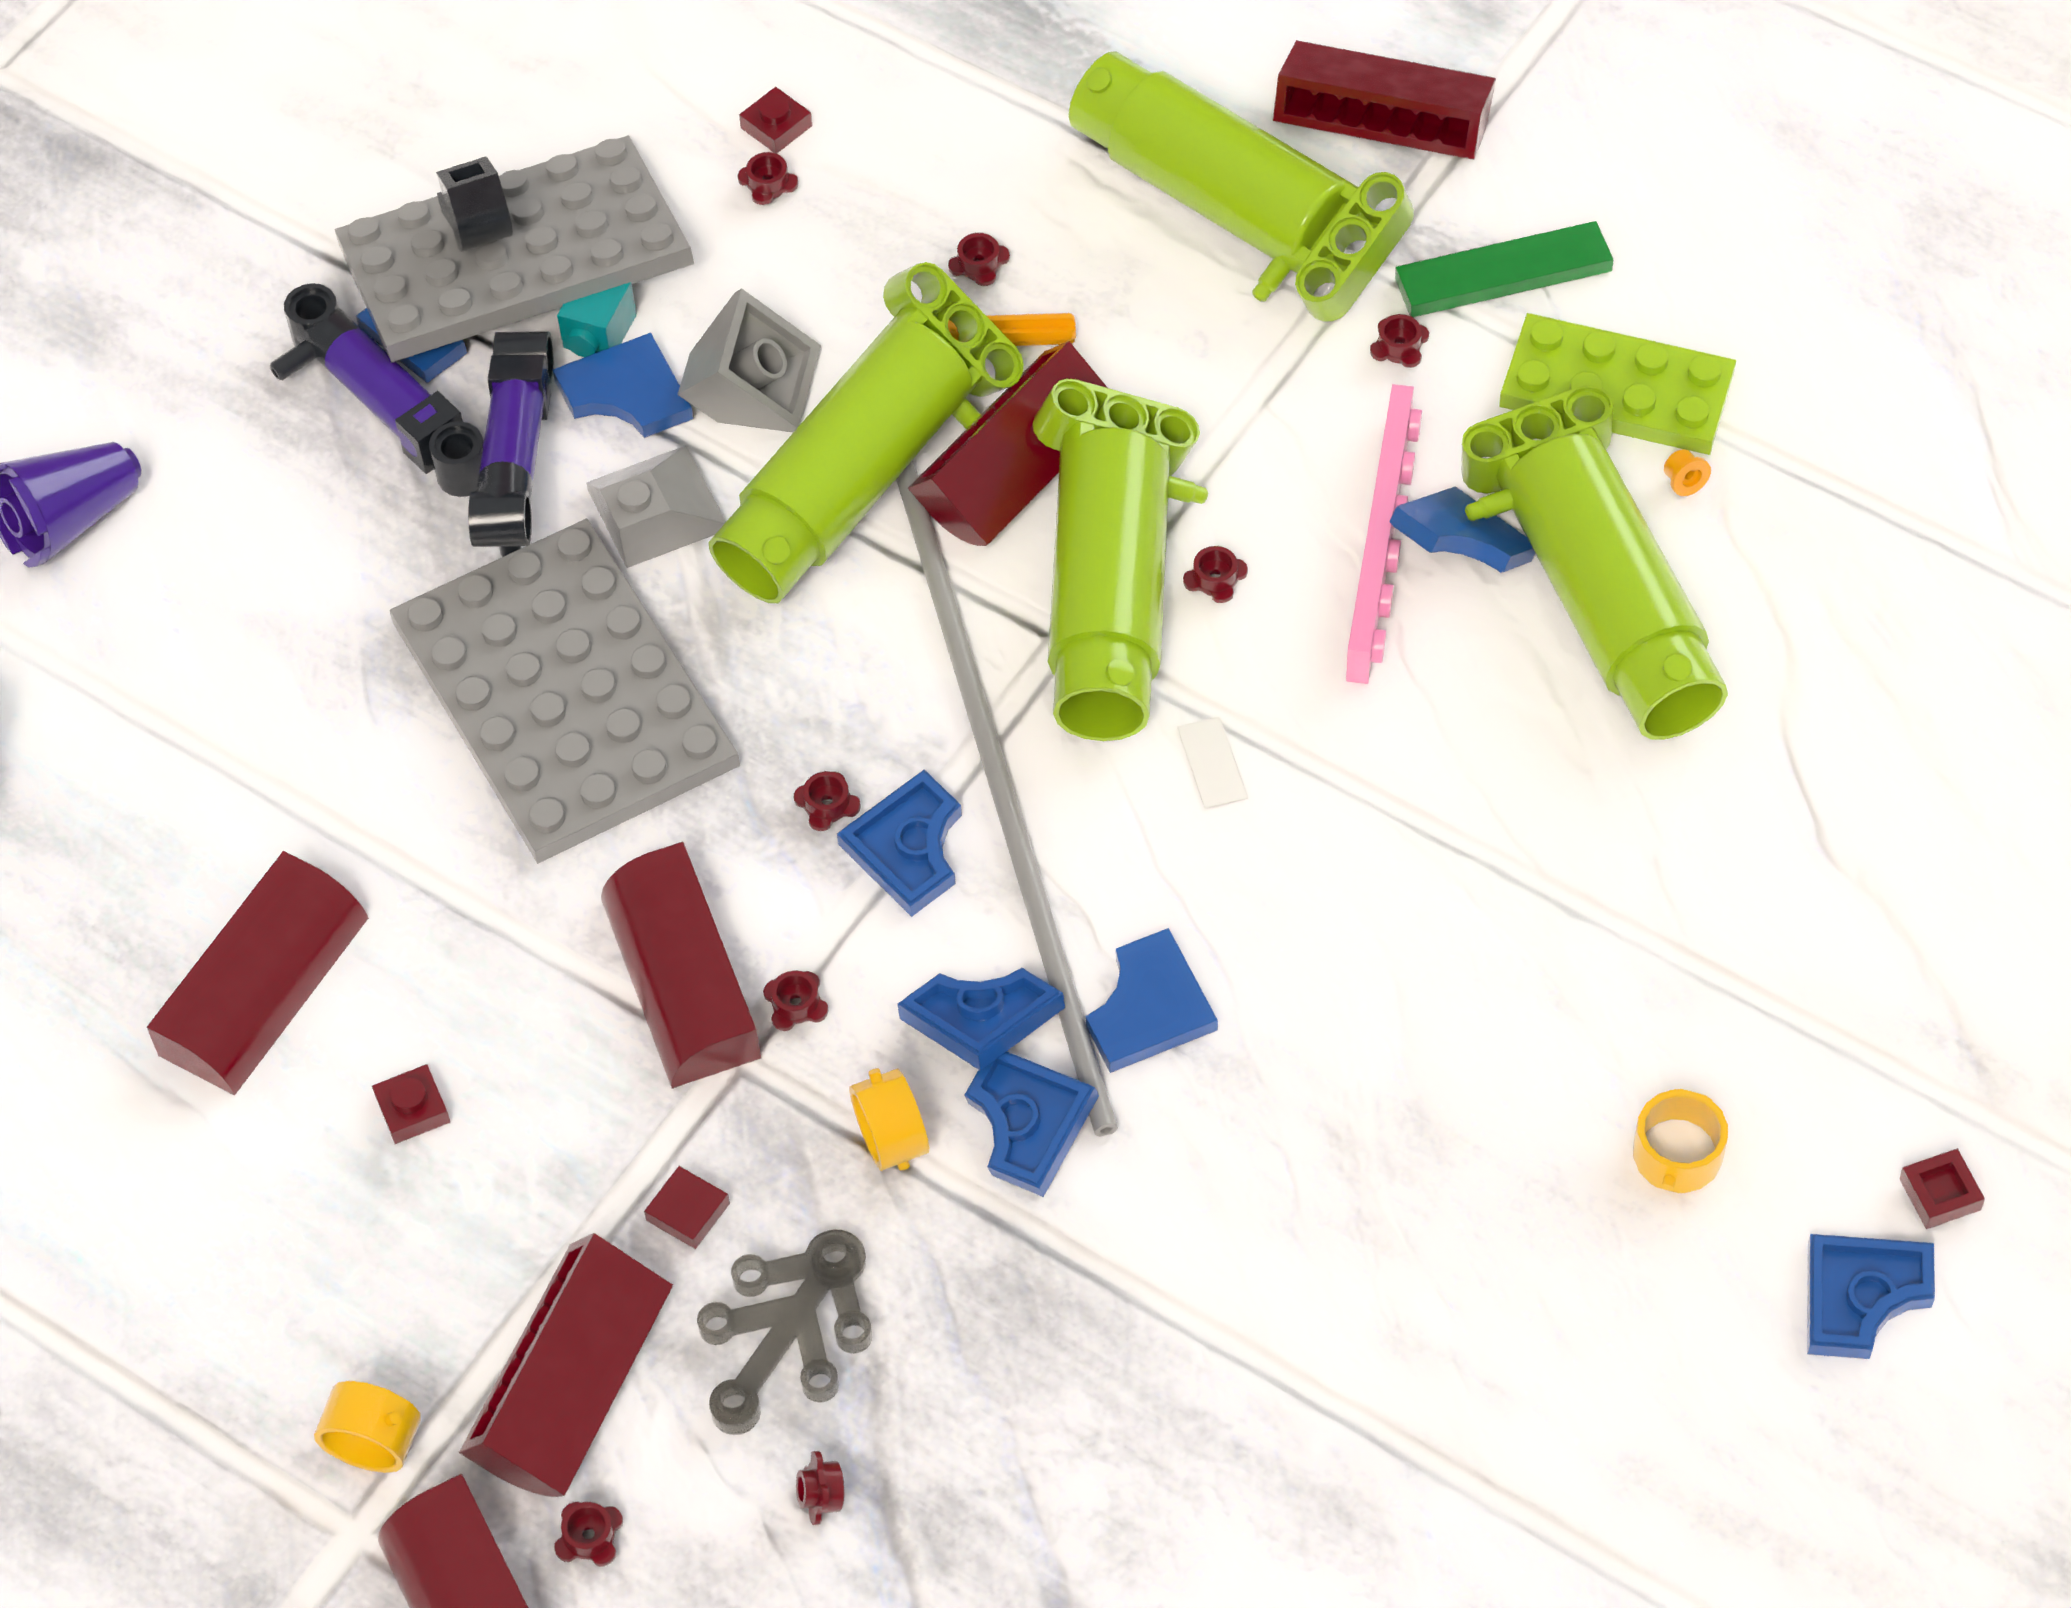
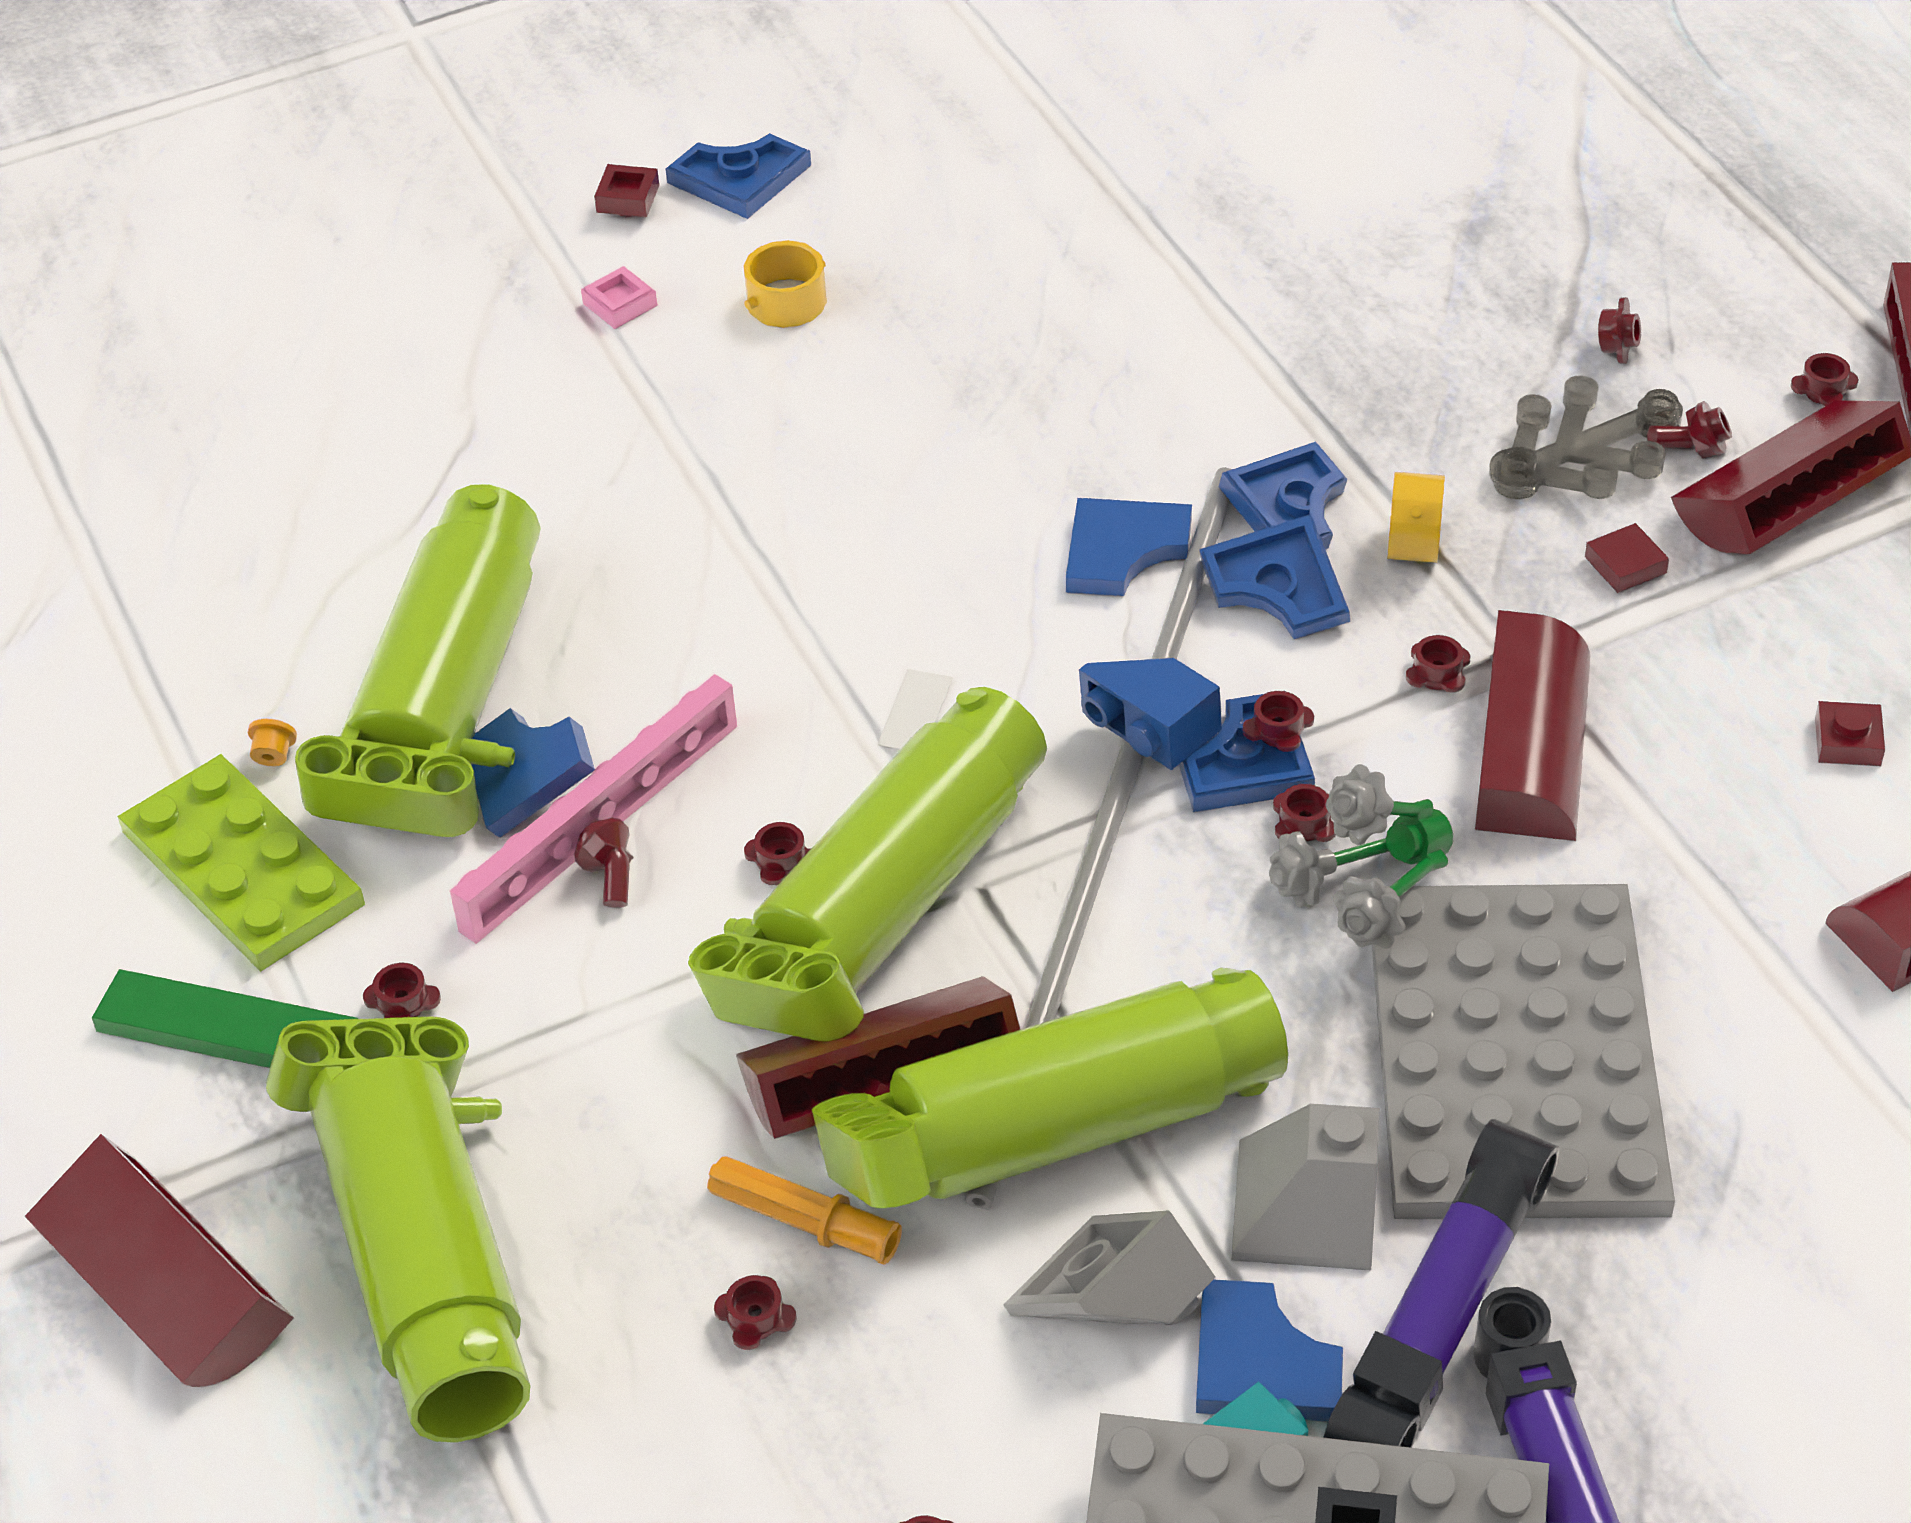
camera: 150 degrees left, 10 degrees down
(684, 1399) = (1705, 431): none -> dark red plate
(751, 717) = (1360, 809): none -> light grey plant
(888, 834) = (1279, 720): none -> dark red plate
(997, 800) = (1152, 705): none -> blue slope
(1344, 501) = (604, 847): none -> dark red plate
(1833, 1063) = (619, 297): none -> bright pink tile

